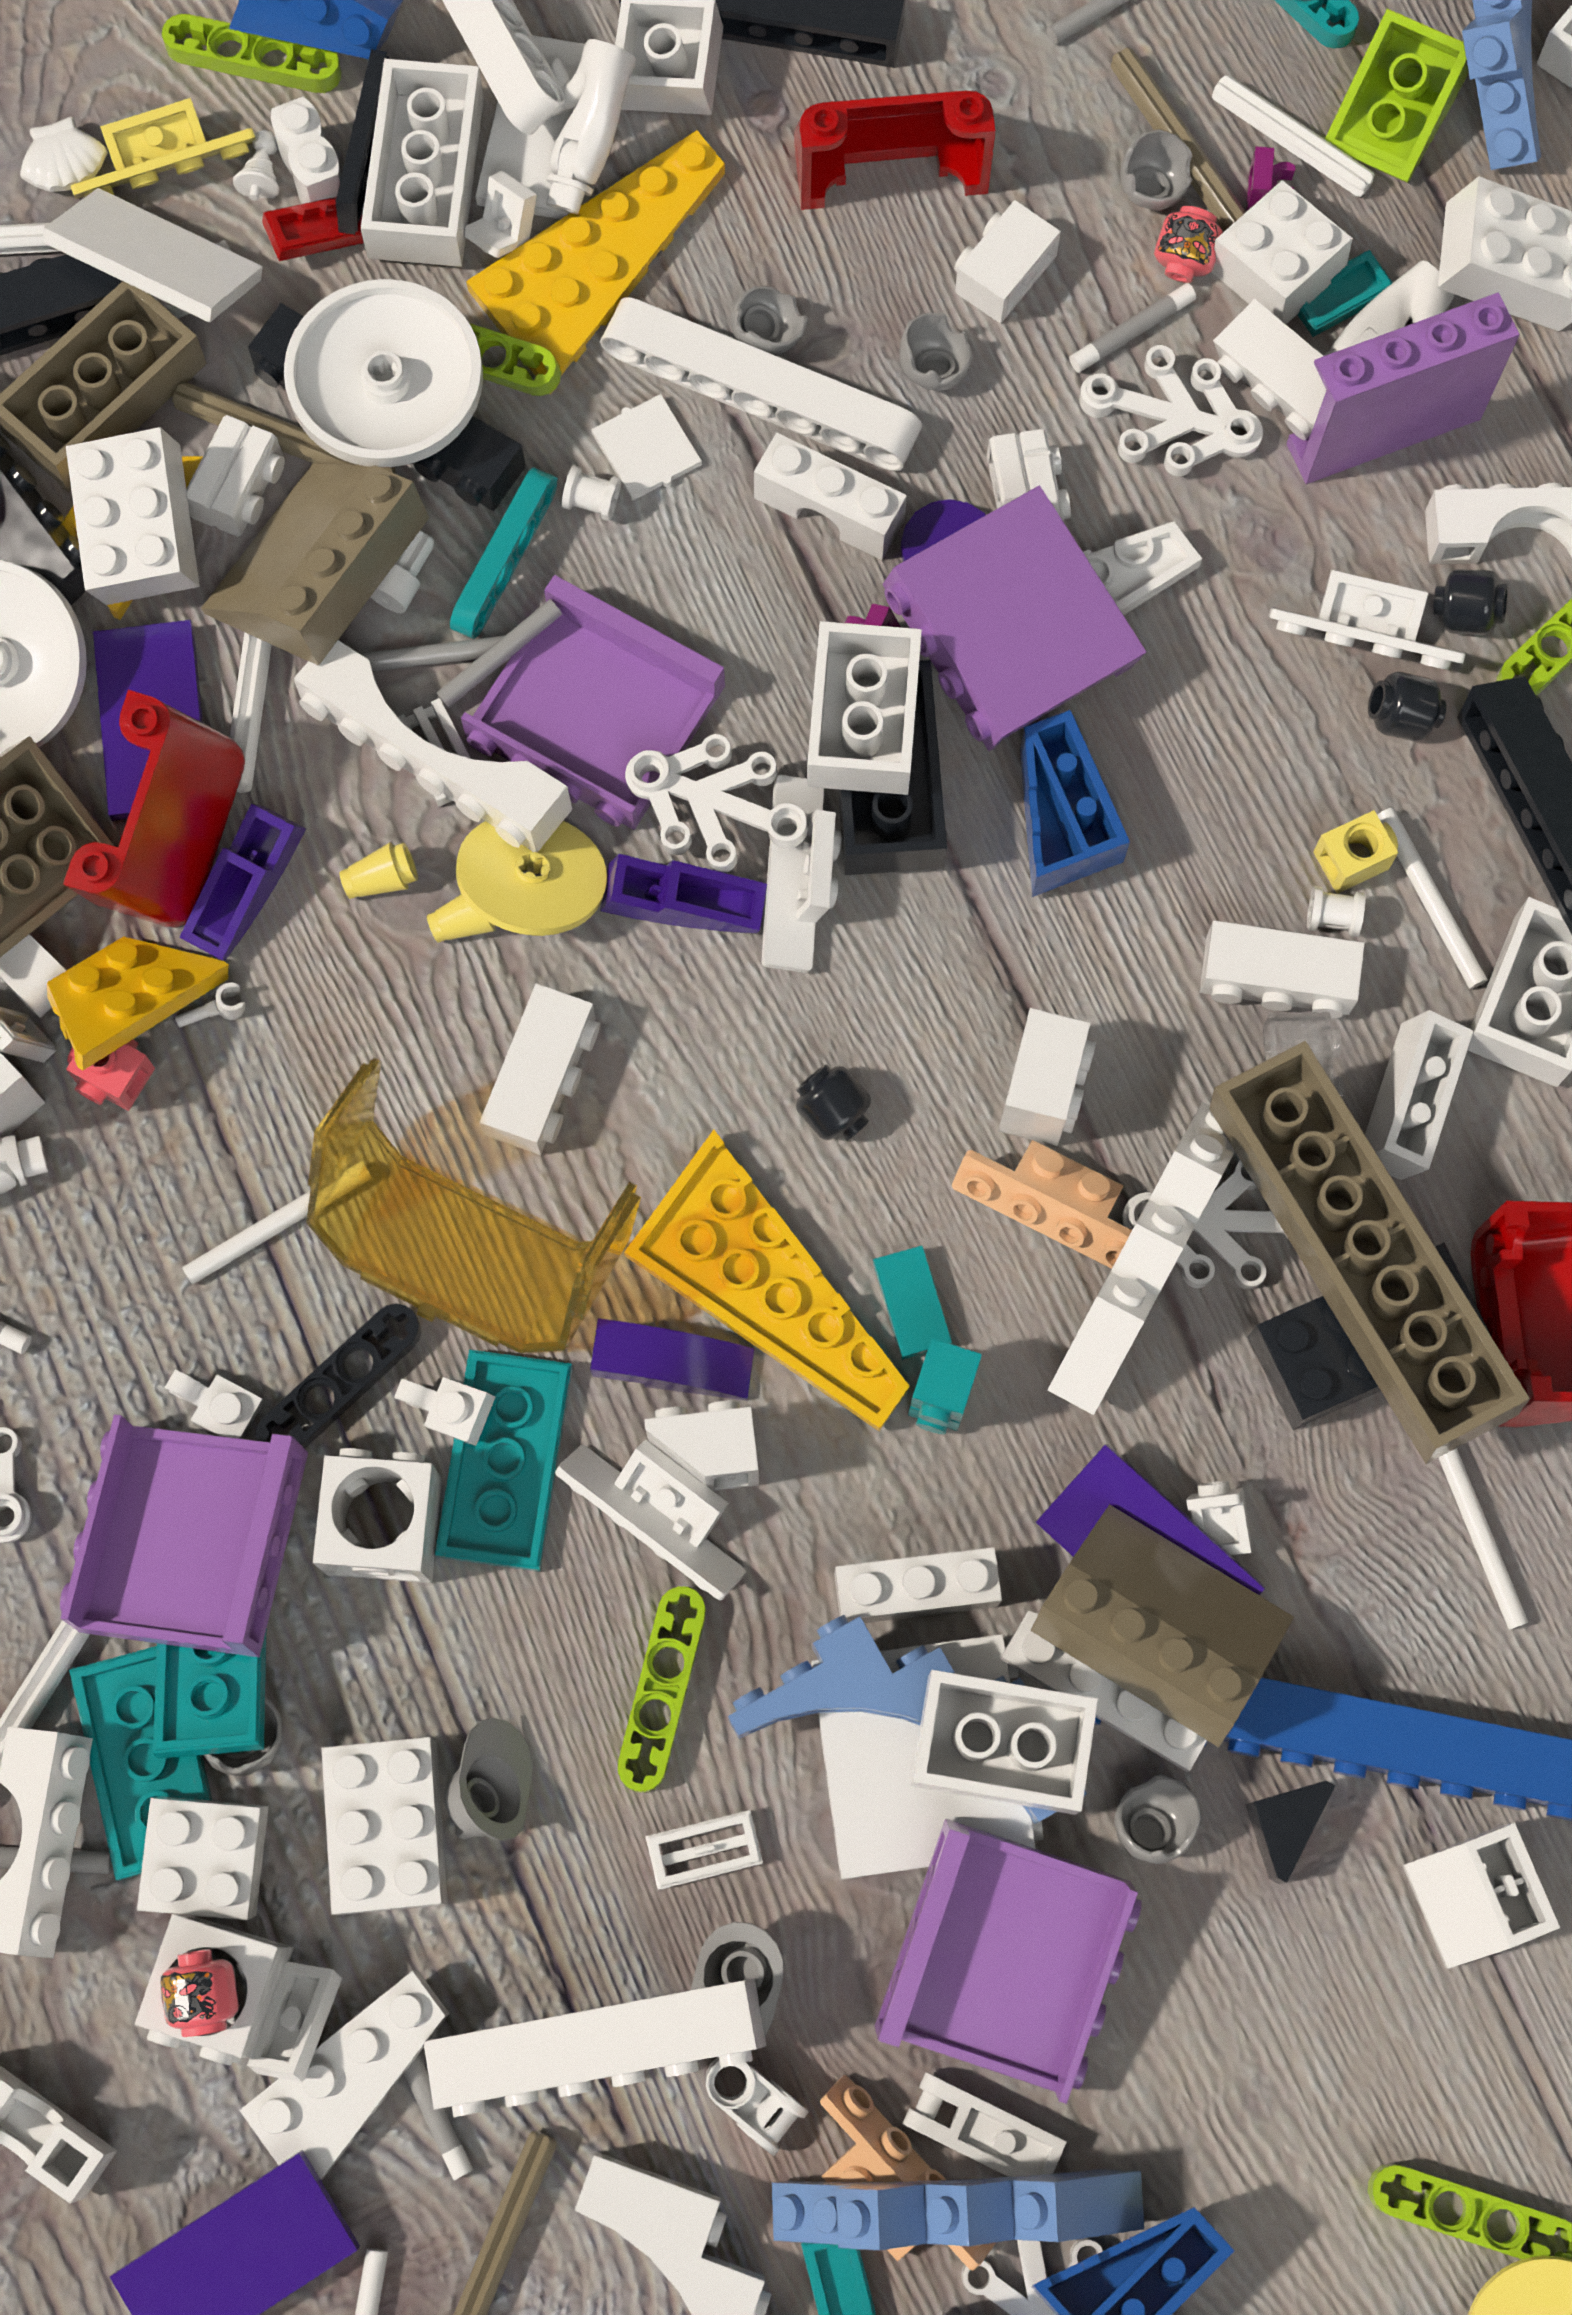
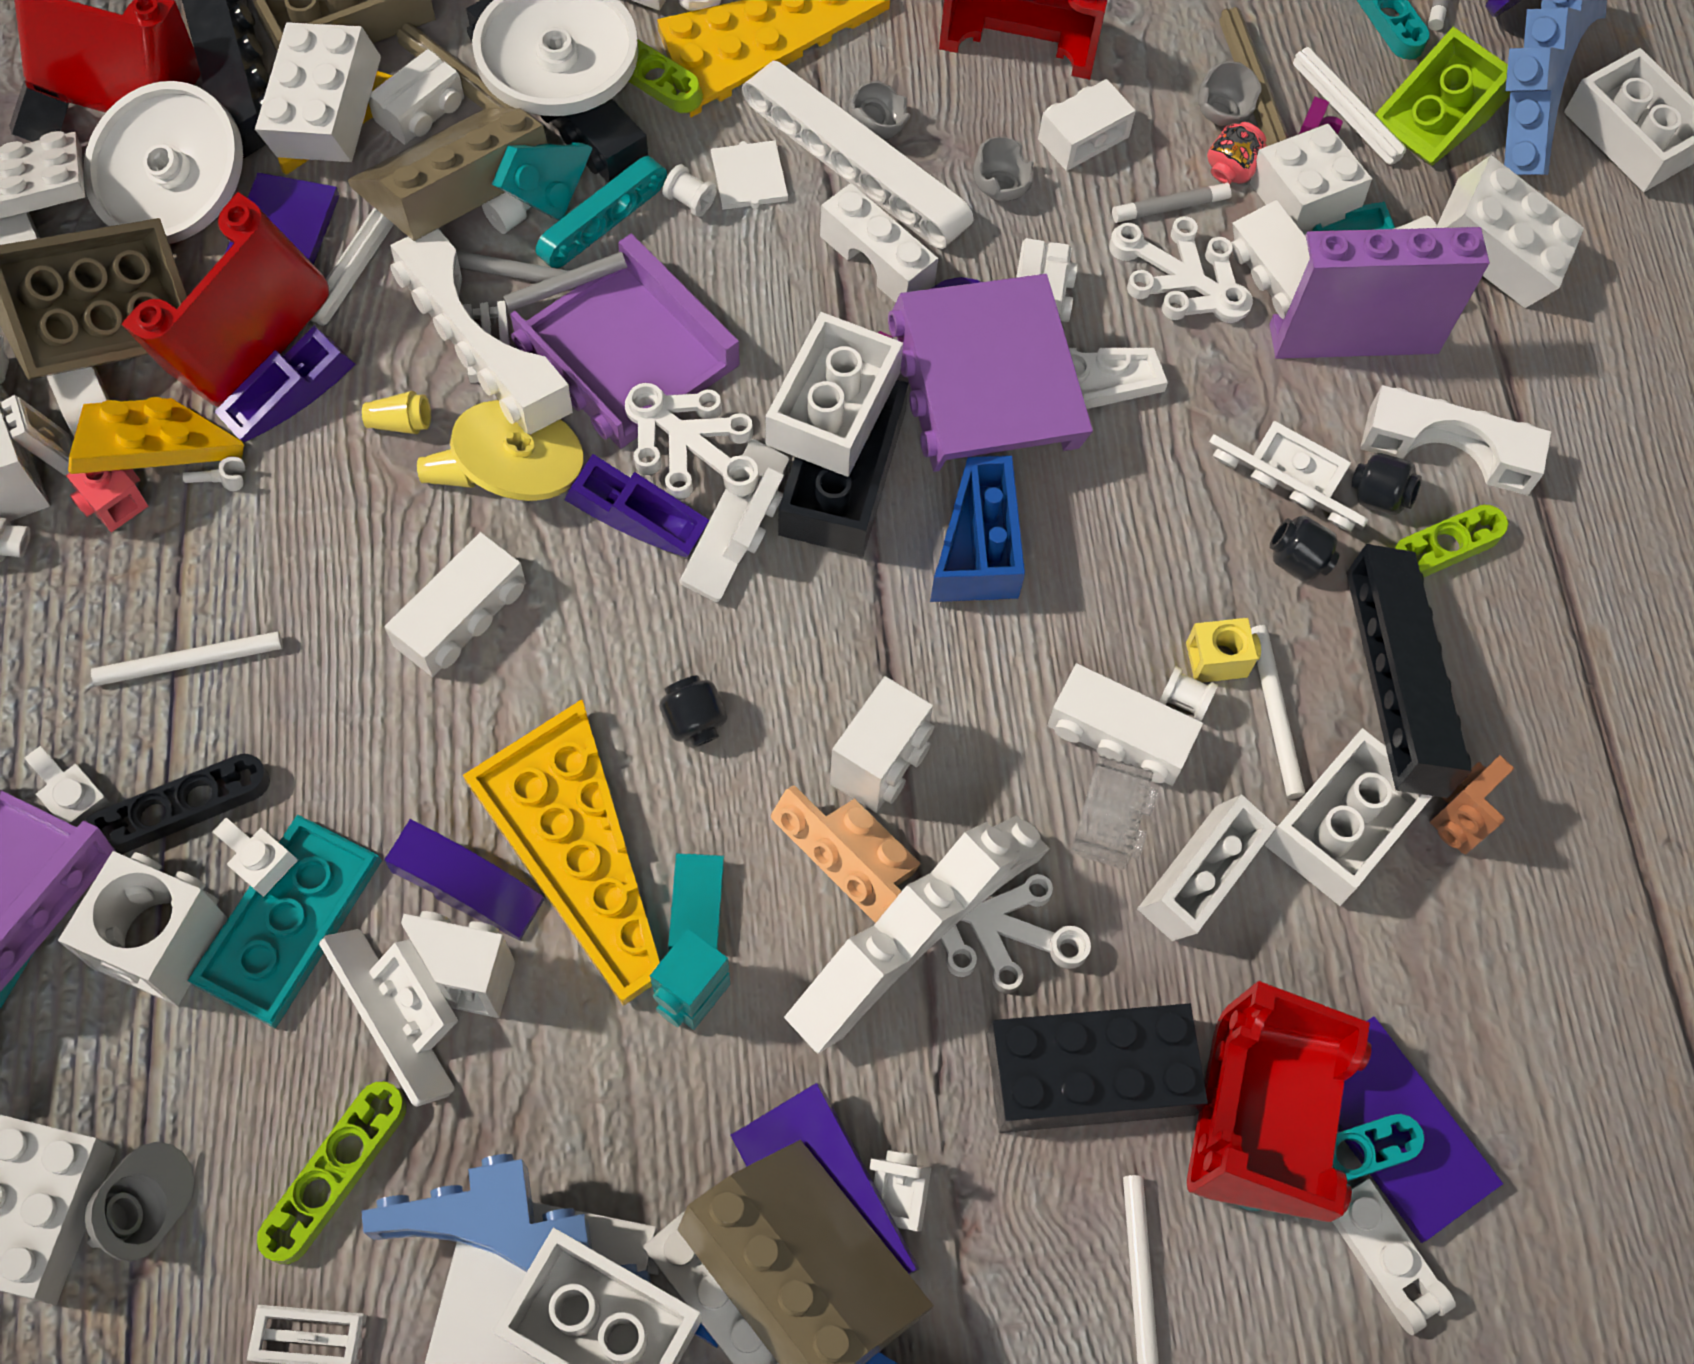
camera: 15 degrees right, 10 degrees down
(428, 534) = (542, 175): none -> teal wing
(446, 1243) = (309, 711): clear yellow piece -> none
(918, 1586) = (598, 1155): white brick -> none
(1367, 1252) = (1115, 991): dark tan brick -> none

